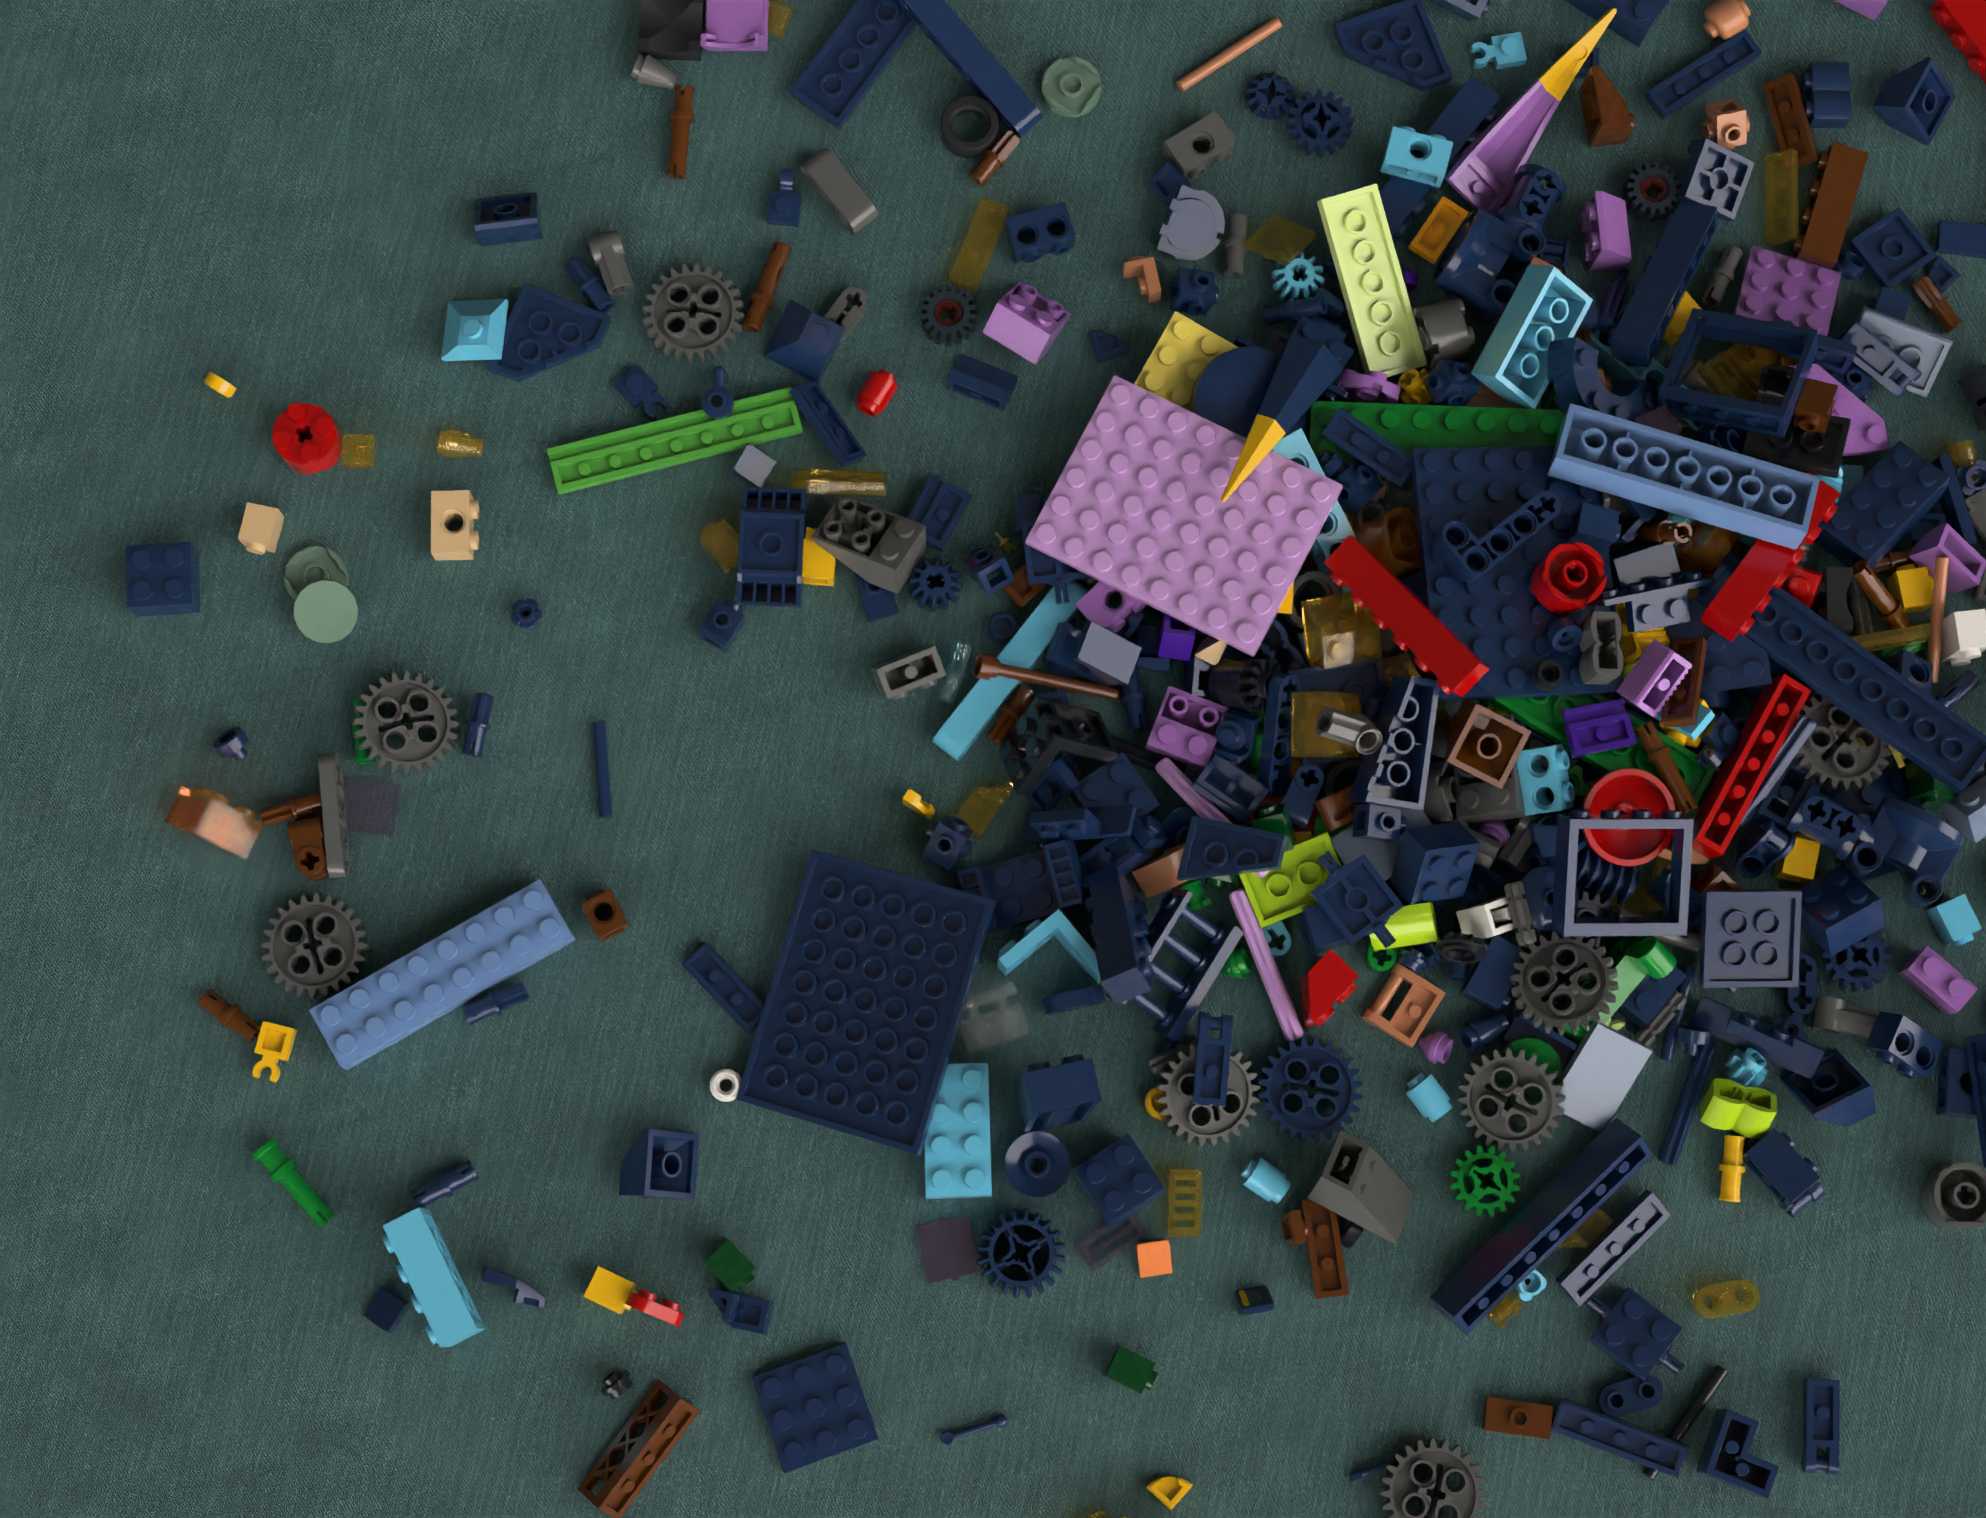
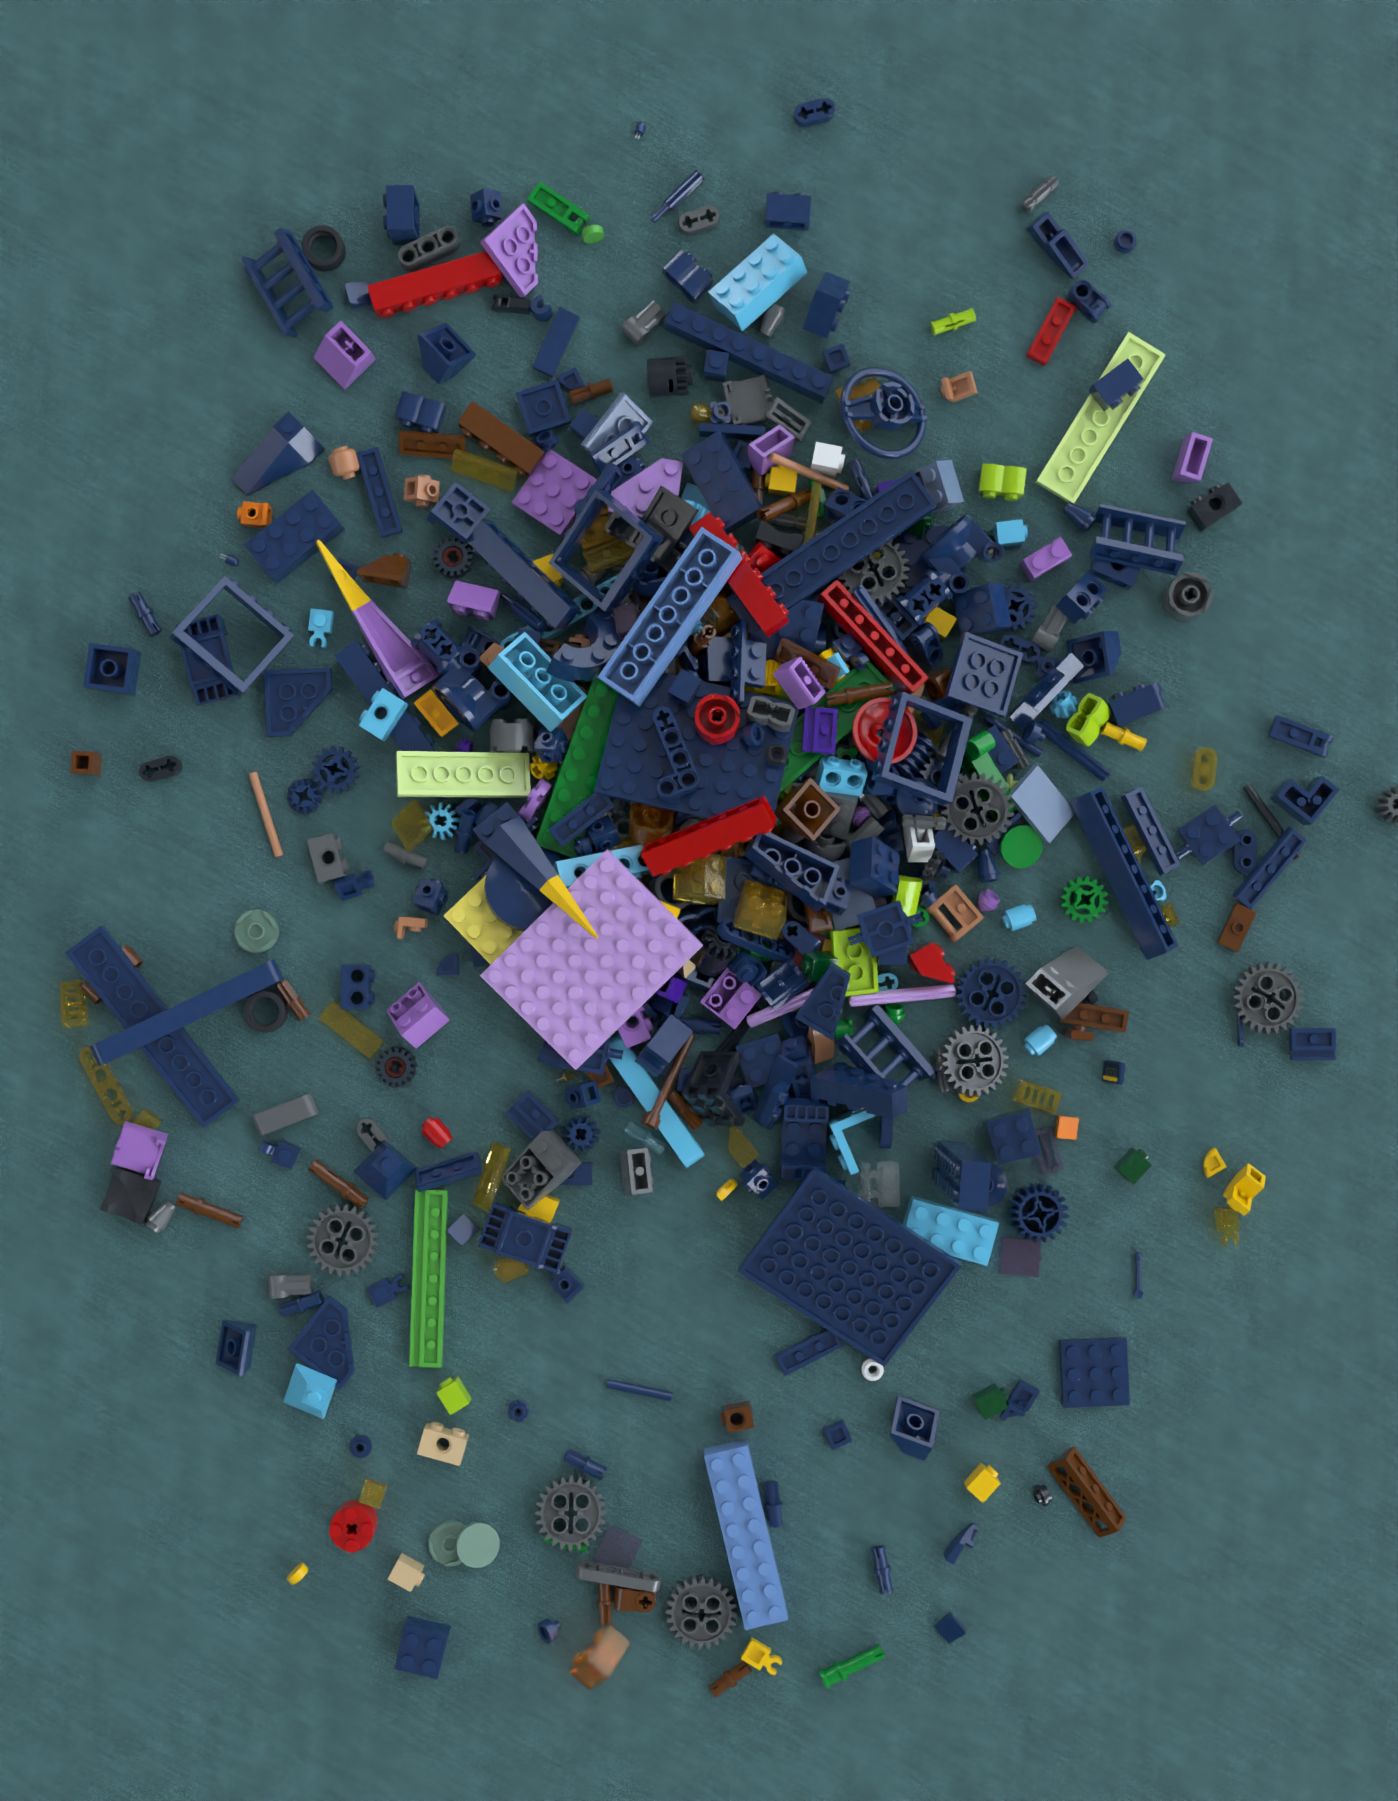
camera: 65 degrees left, 10 degrees up
(417, 427) = (365, 1441): none -> dark blue plate
(433, 1277) = (942, 1595): medium azure brick -> none
(458, 444) = (387, 1424): clear yellow cone -> none
(524, 519) = (453, 1394): none -> lime brick
(618, 1064) = (837, 1434): none -> dark blue tile
(645, 1302) = (1004, 1458): red plate -> none
(718, 389) = (405, 1239): dark blue plate -> none
(982, 382) = (449, 1057): dark blue panel -> none
(1191, 225) = (382, 882): piece -> none
(1212, 1060) = (958, 1054): dark blue plate -> none
(1349, 729) = (774, 896): dark grey piece -> none
(1525, 1073) = (1048, 877): dark grey gear -> none
(1722, 276) = (526, 530): dark grey pin -> none
(1815, 405) = (645, 507): reddish brown brick -> none

